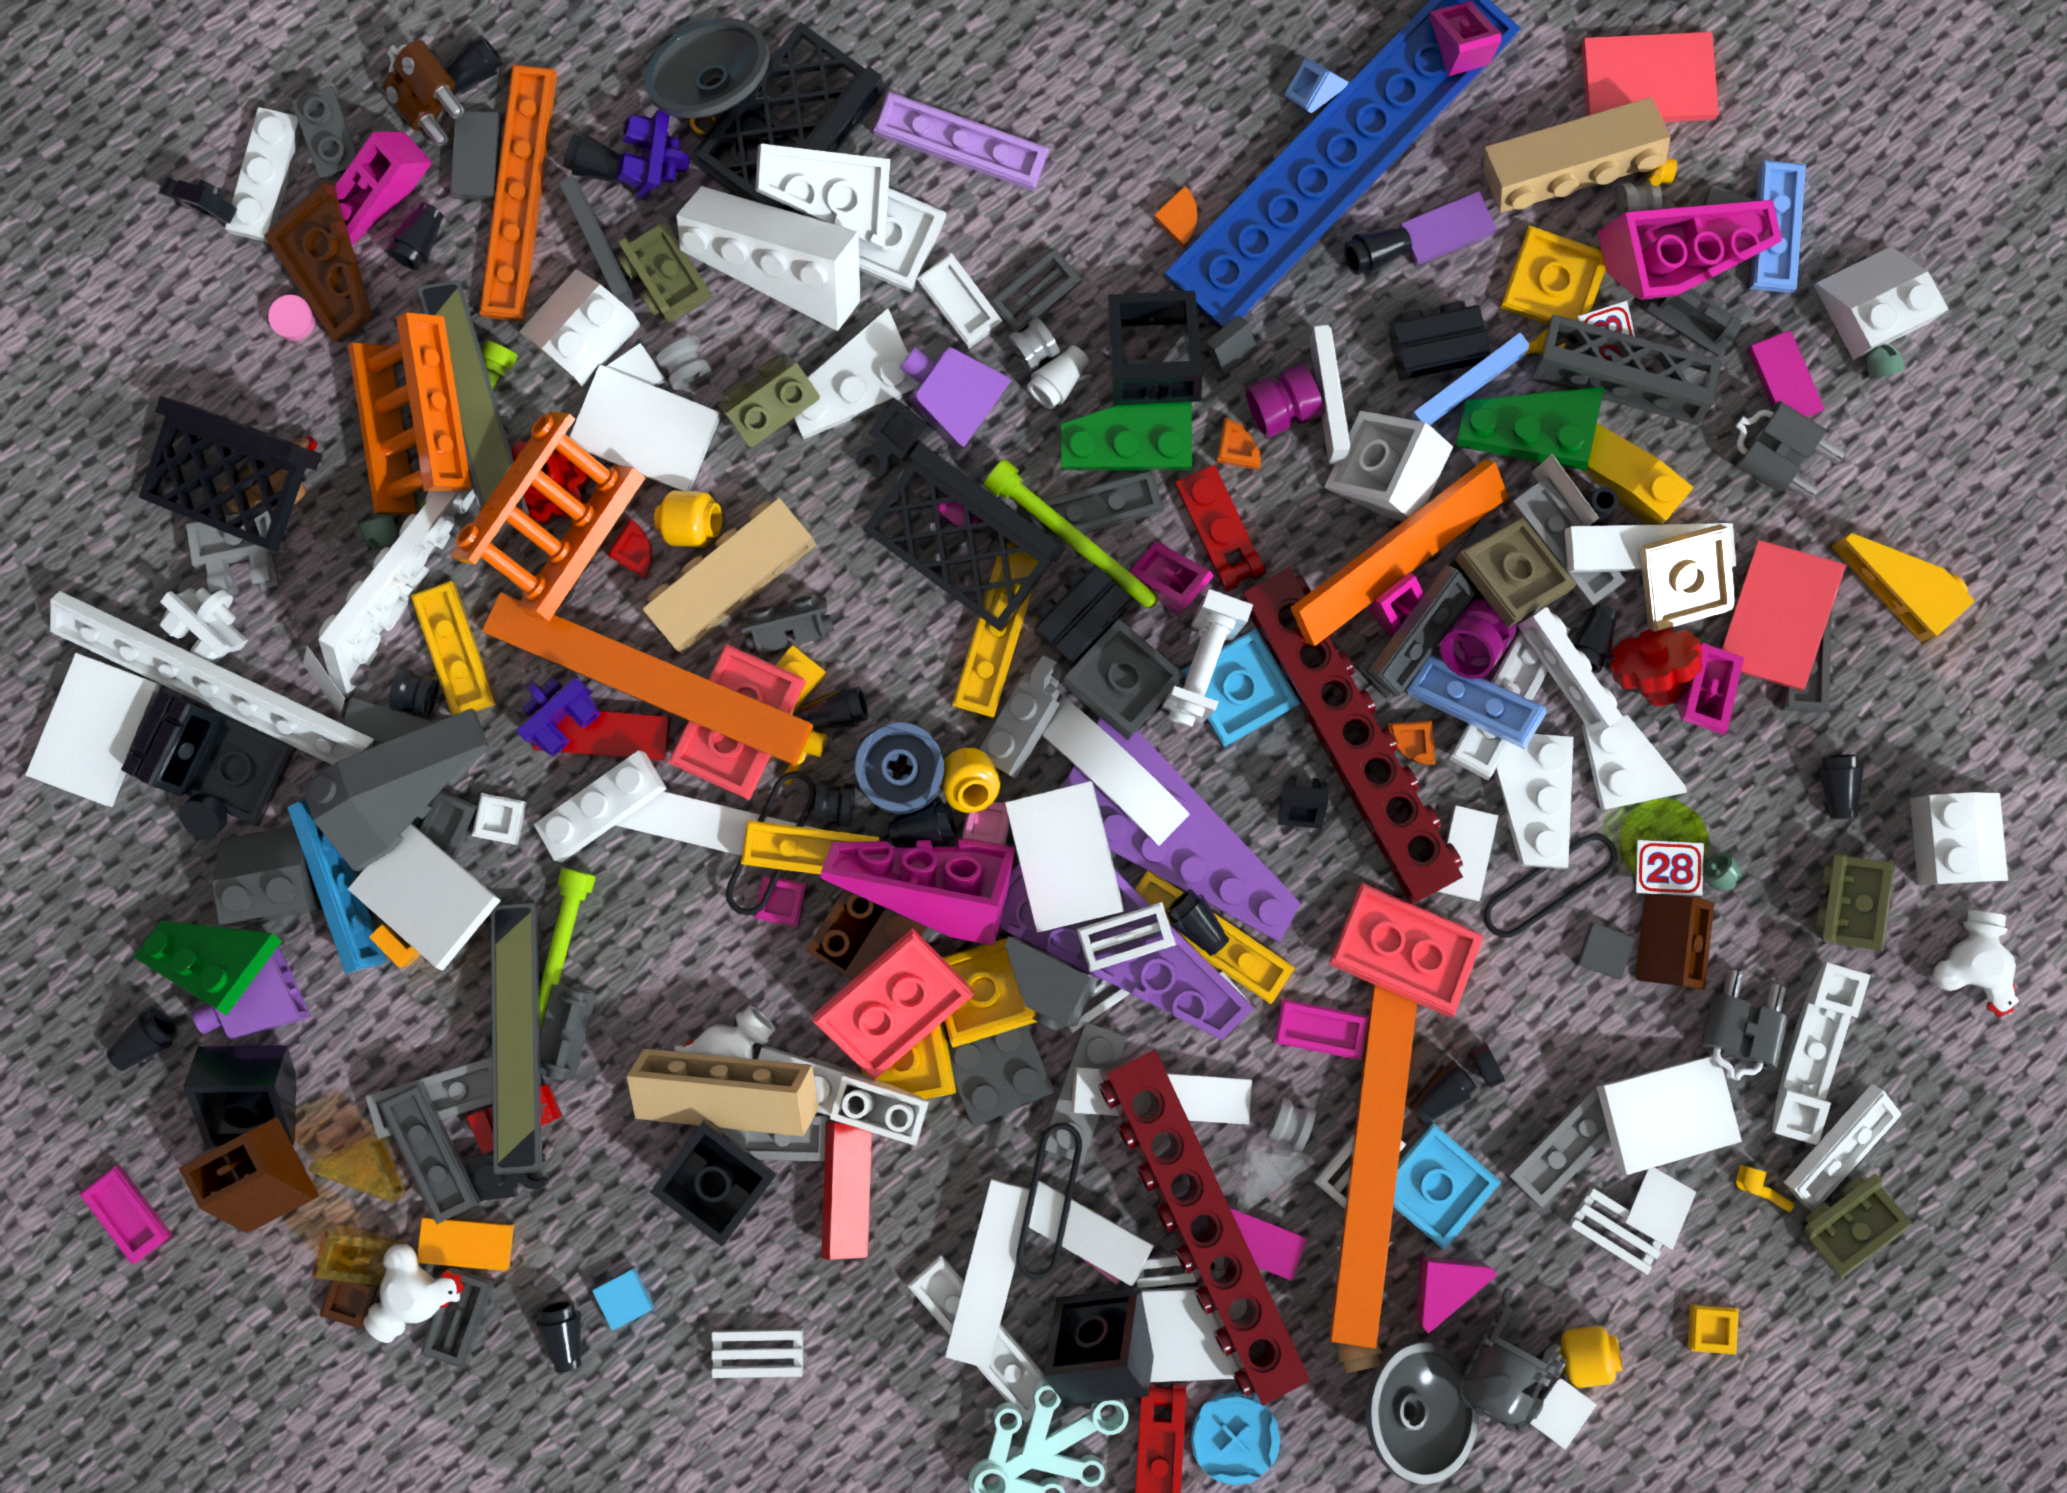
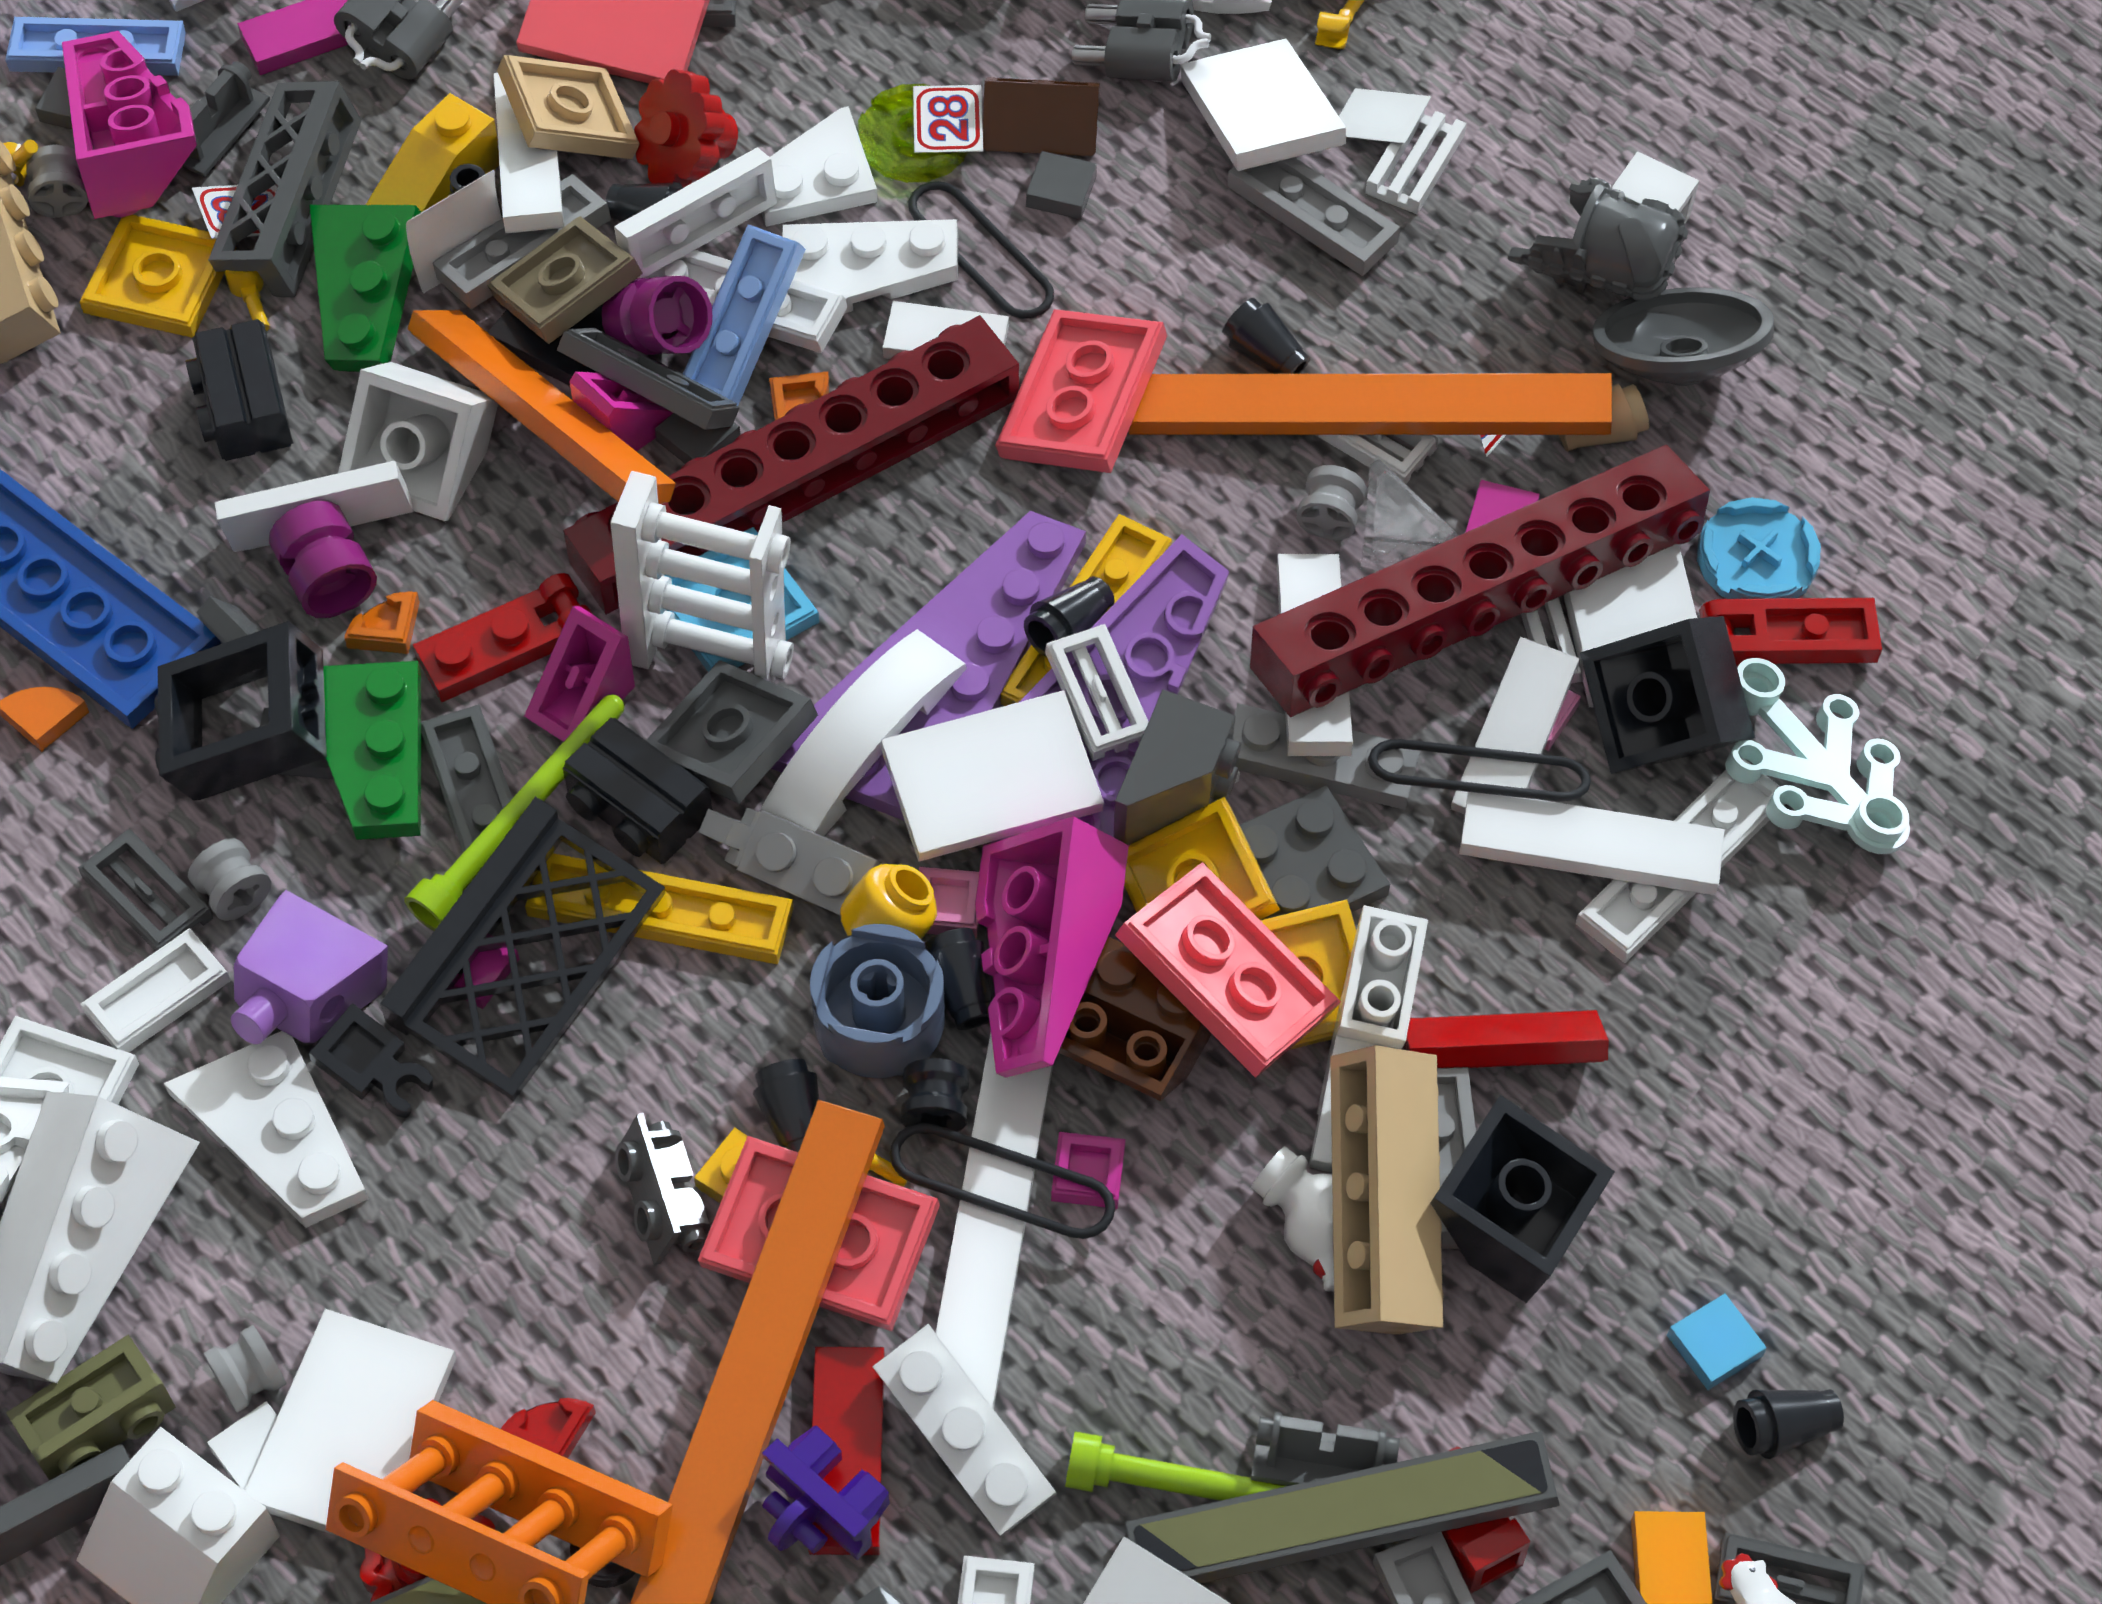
camera: 95 degrees left, 25 degrees down
(493, 1186) = (1559, 1538): black plate -> none
(688, 519) = (498, 1338): yellow head -> none
(720, 1354) = (1752, 1098): white tile -> none
(729, 575) = (589, 1272): tan brick -> none
(768, 399) = (304, 1233): olive bracket -> none
(791, 846) = (1007, 1137): yellow tile -> none
(1056, 379) = (282, 849): white cone -> none
(1303, 805) = (894, 511): black tile -> none
(1321, 1029) = (1199, 484): dark pink tile -> none
(1376, 249) = (106, 471): black cone -> none
(1440, 1186) = (1388, 335): medium azure tile -> none
(1446, 1286) = (1522, 325): dark pink slope -> none
(1449, 228) = (78, 395): medium lavender tile -> none
(1472, 380) = (298, 345): light blue tile -> none
(1486, 1065) = (1223, 294): black tile -> none
(1590, 1356) = (1574, 158): yellow head -> none
(1712, 692) = (731, 68): dark pink slope -> none
(1713, 1329) = (1521, 62): yellow tile -> none
(1729, 869) = (943, 62): sand green hinge -> none

